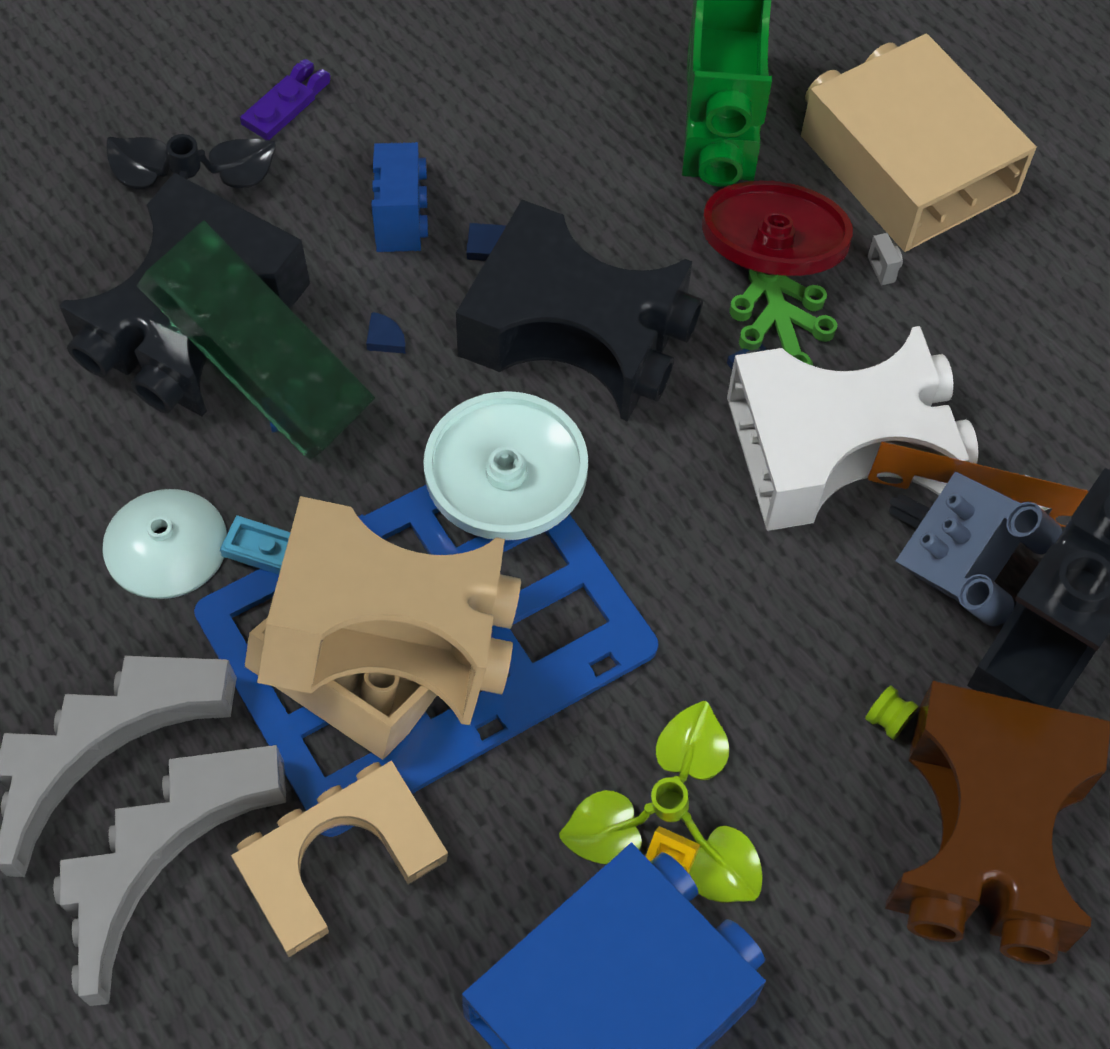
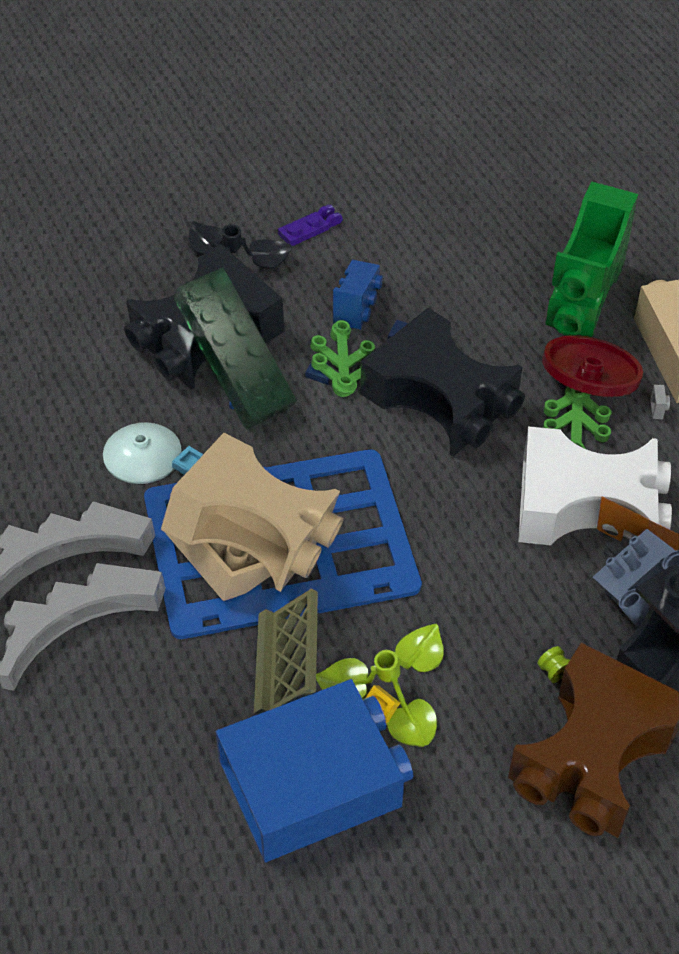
camera: 20 degrees right, 10 degrees down
(374, 802) = (206, 621): tan arch -> none
(412, 309) = (342, 381): none -> bright green plant
(491, 833) = (274, 653): none -> olive fence
(506, 465) = (362, 457): light aqua dish -> none

